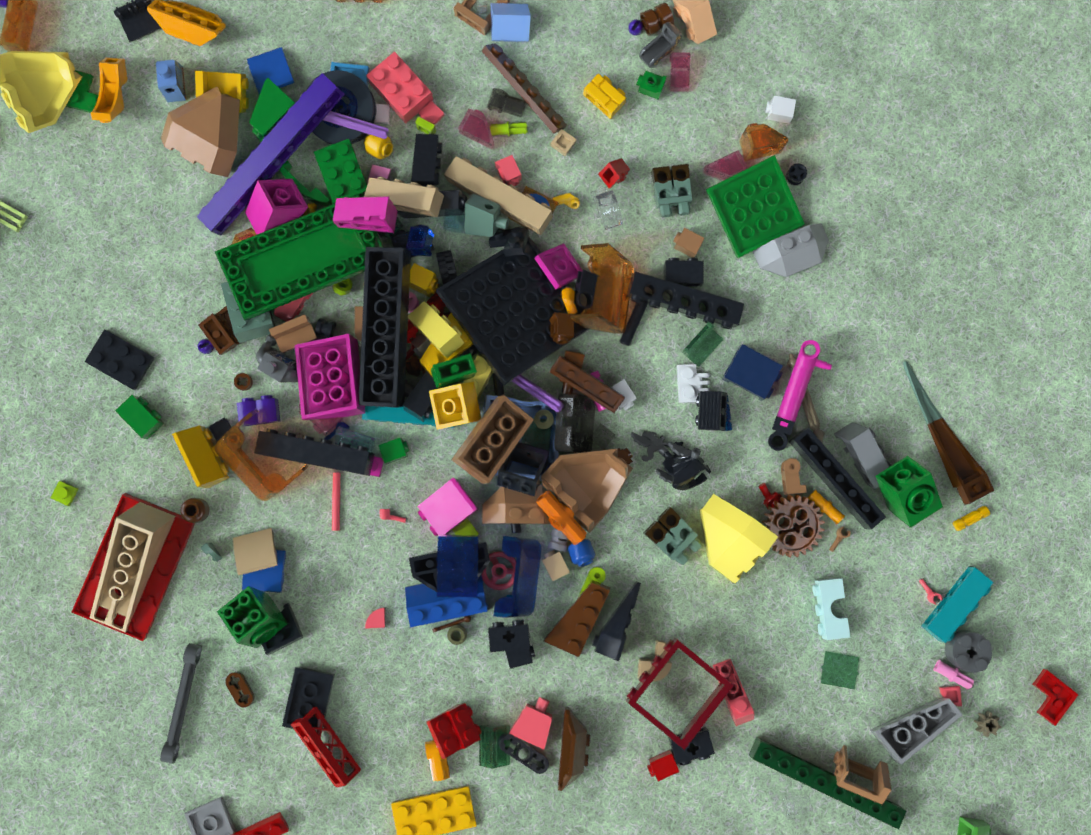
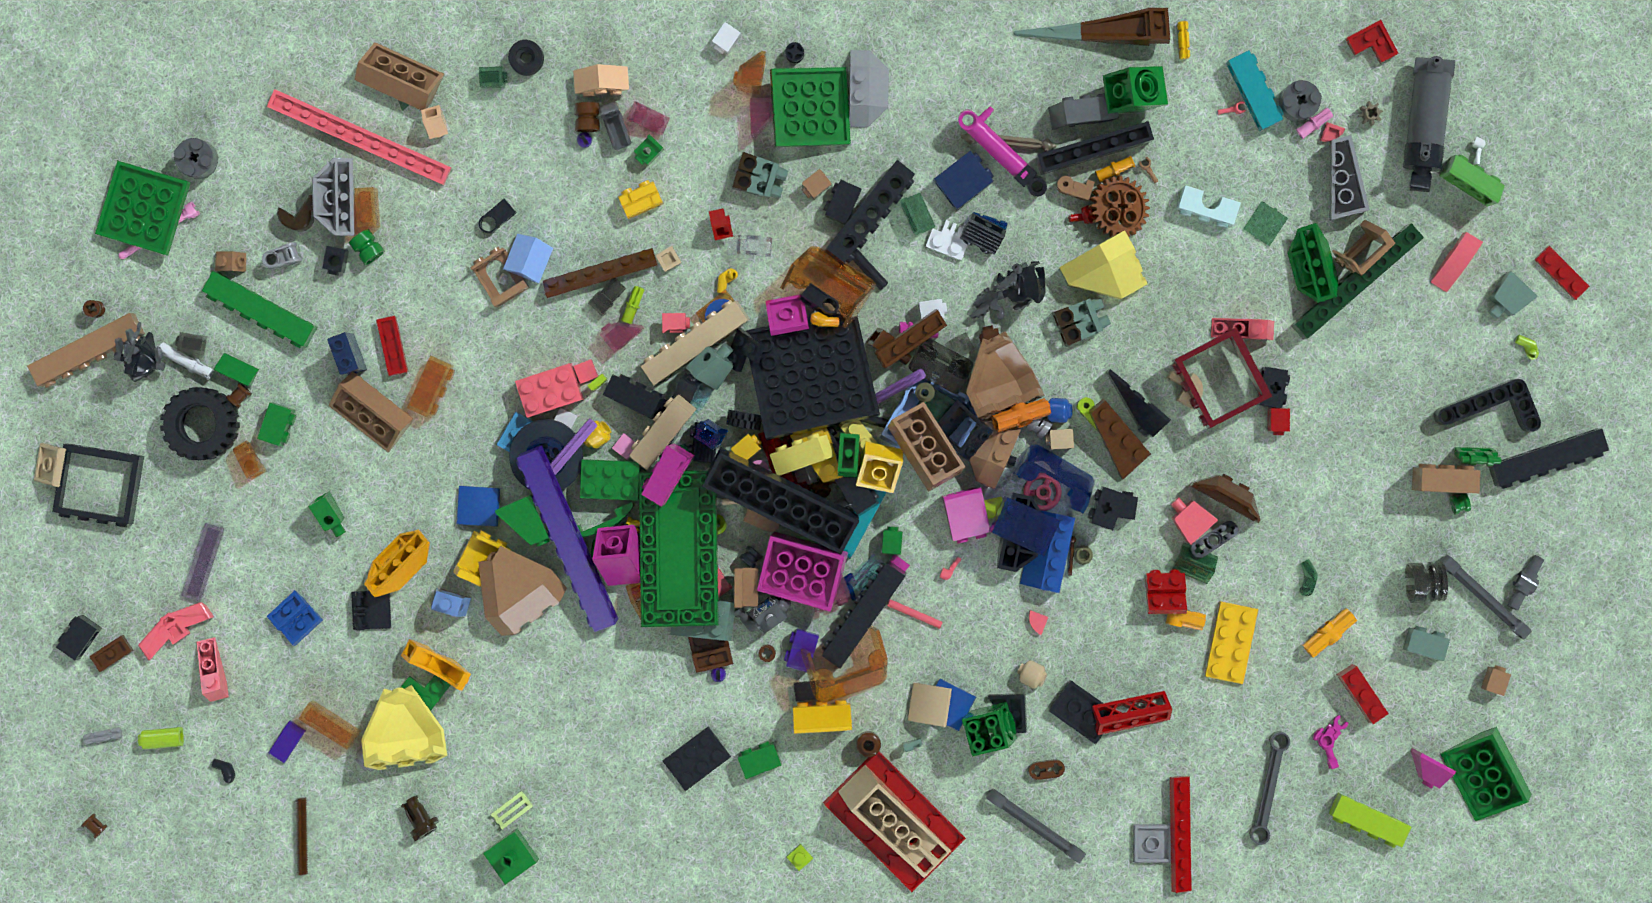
camera: 60 degrees left, 5 degrees up
(324, 636) = (1032, 674): none -> tan head
(562, 328) = (849, 339): reddish brown window -> none
(824, 732) = (1313, 264): none -> green wedge
(1009, 782) = (1428, 120): none -> dark grey piece

